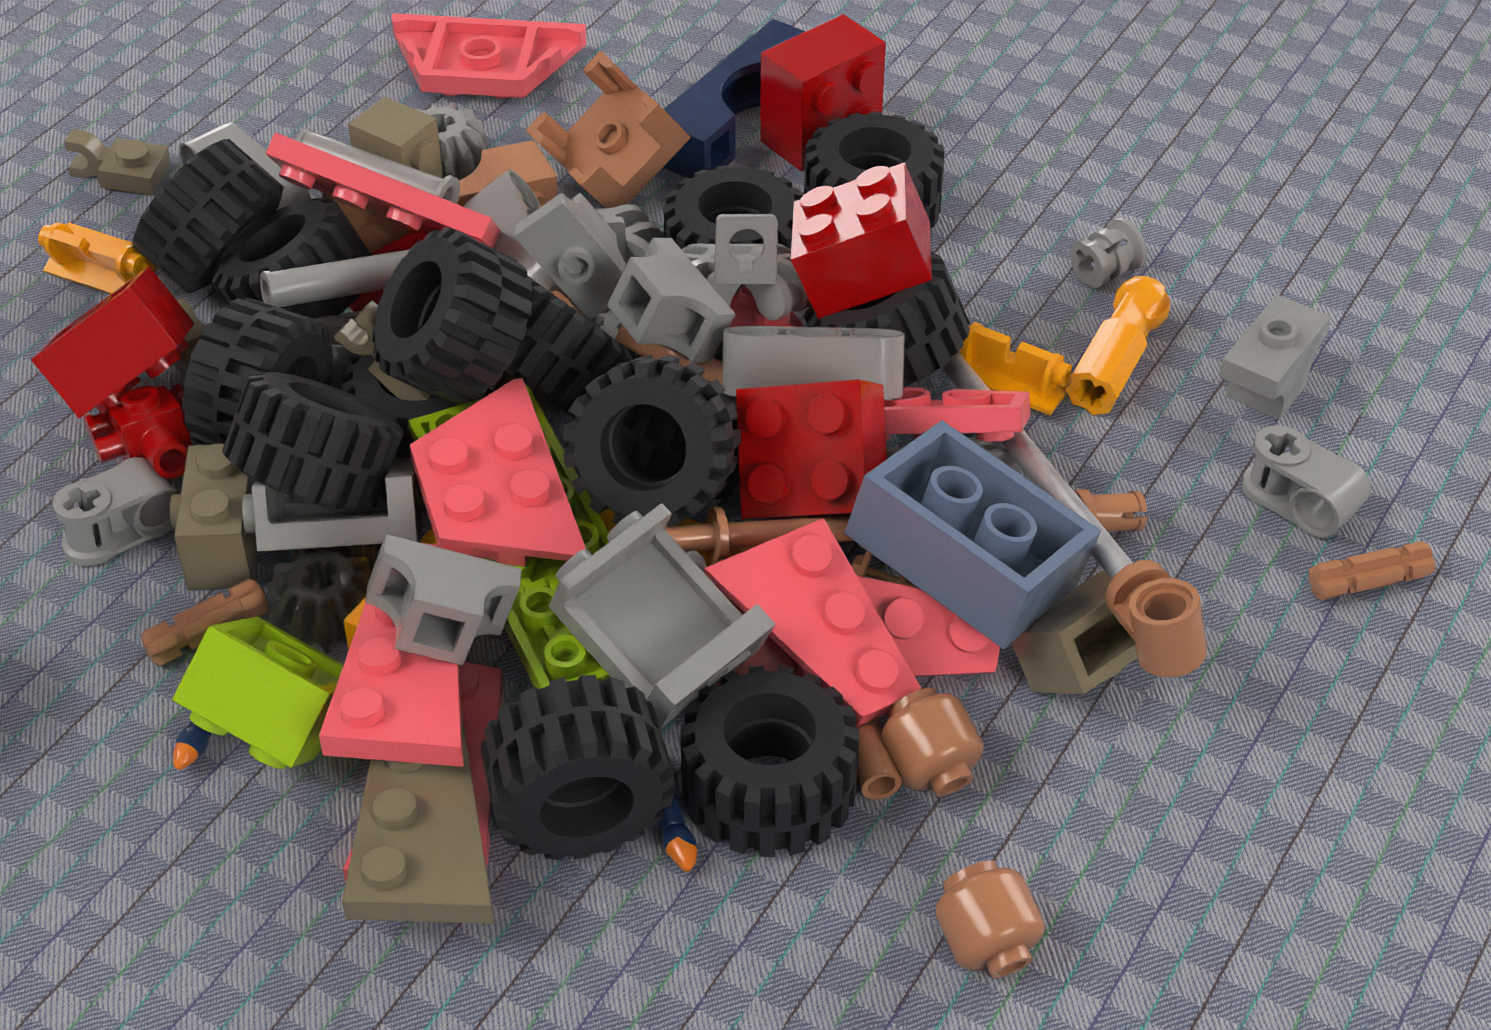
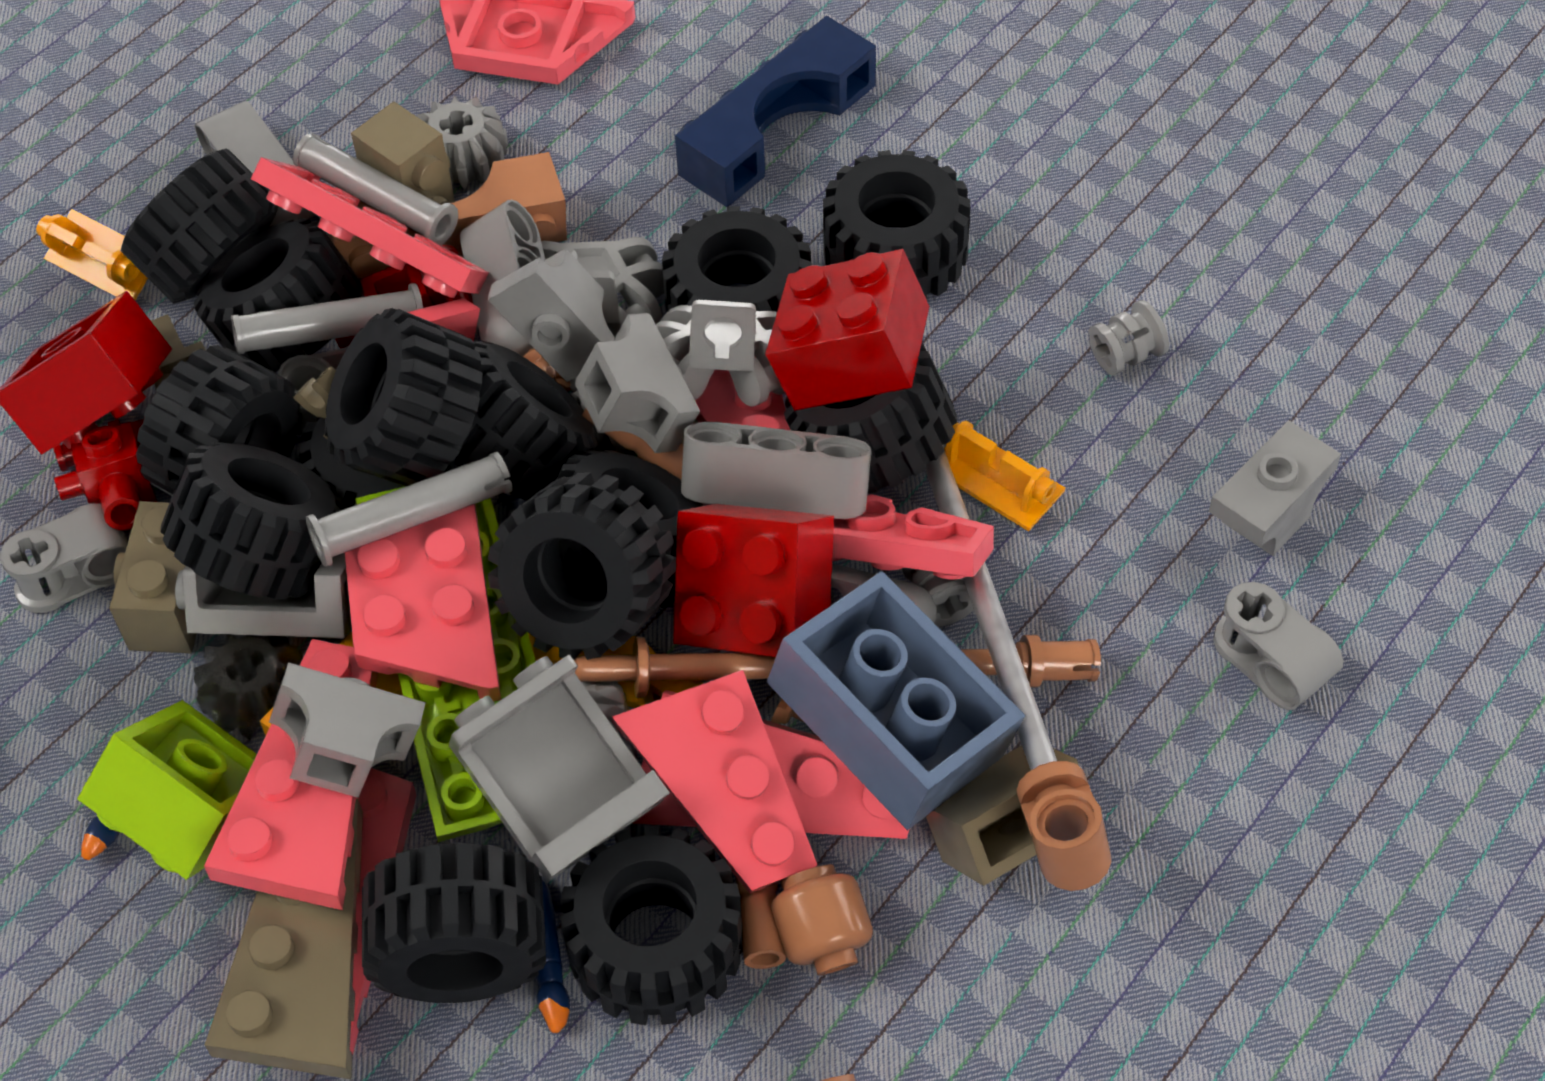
camera: 10 degrees right, 10 degrees up
(123, 166) = (141, 139): dark tan plate -> none
(164, 642) = (134, 694): nougat axle -> none
(470, 407) = (408, 507): none -> light grey pin
(616, 141) = (634, 158): nougat panel -> none
(817, 79) = (859, 106): red brick -> none
(1118, 344) = (1115, 454): light orange piece -> none
(1371, 570) = (1325, 758): nougat axle -> none

